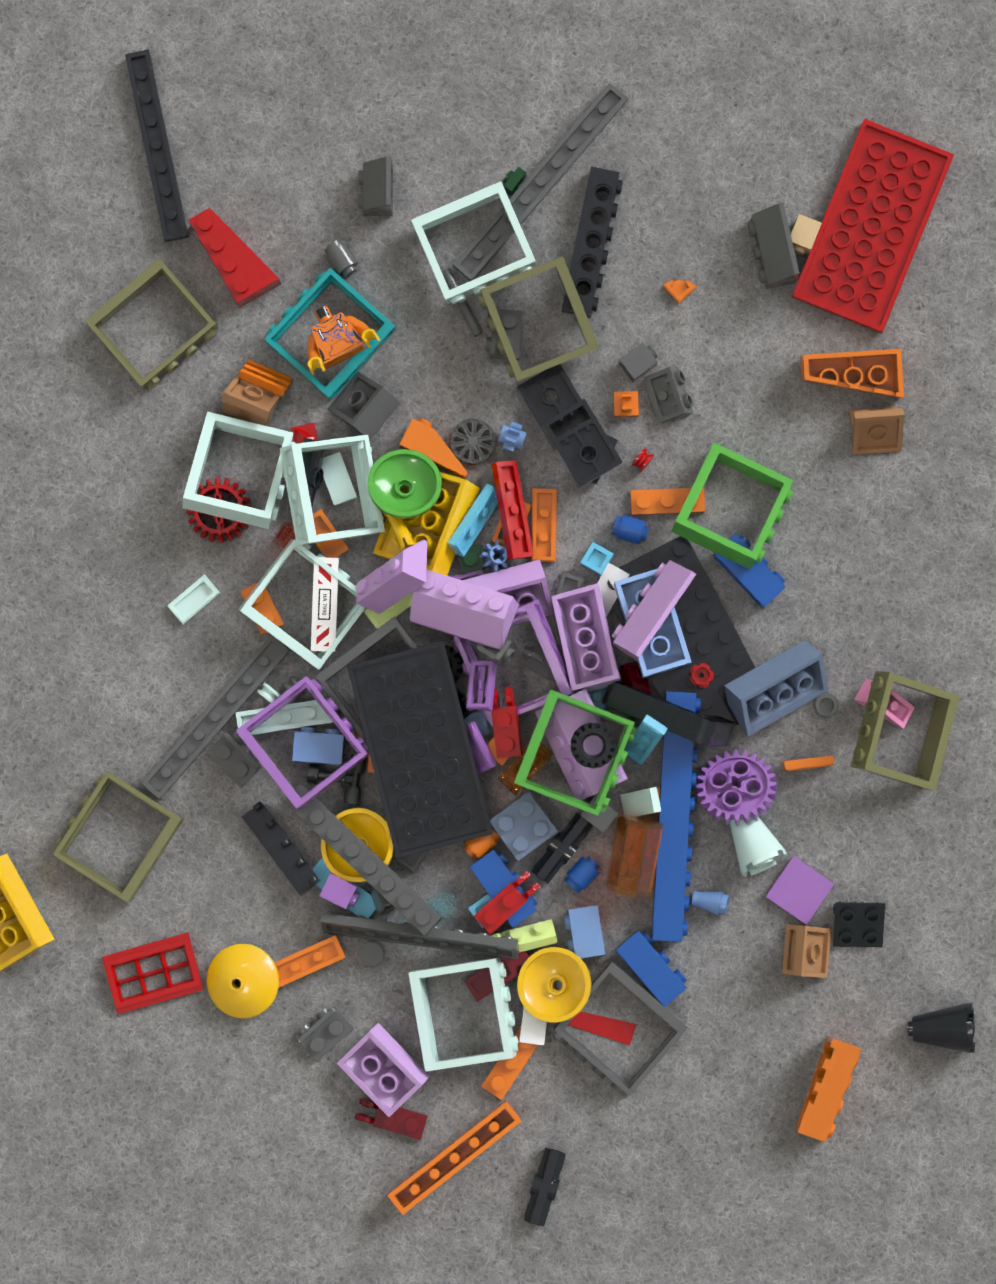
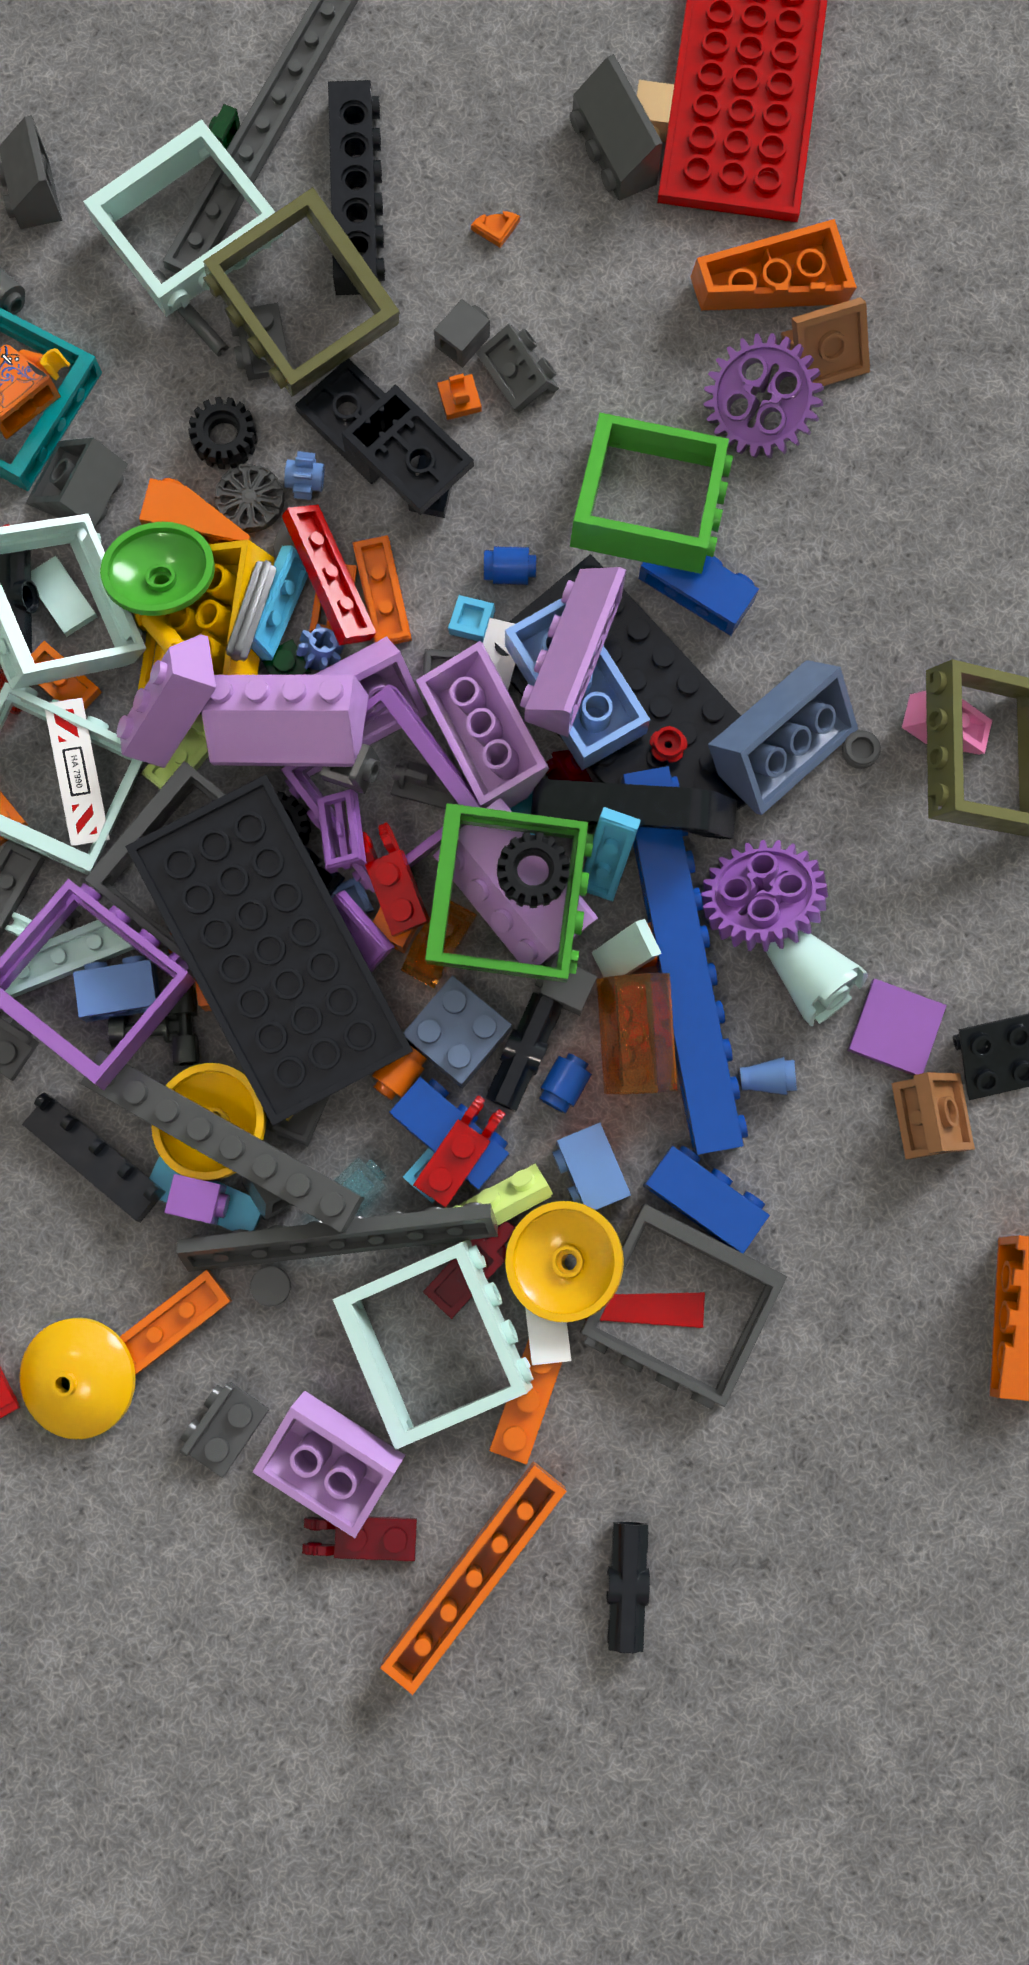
camera: 20 degrees left, 5 degrees down
(455, 383) = (223, 413): none -> black tyre
(457, 527) = (251, 610): none -> axle
(642, 460) = (503, 465): red bush -> none
(663, 501) = (545, 518): orange plate -> none
(807, 442) = (794, 407): none -> medium lavender gear
(808, 763) = (859, 836): orange tile -> none

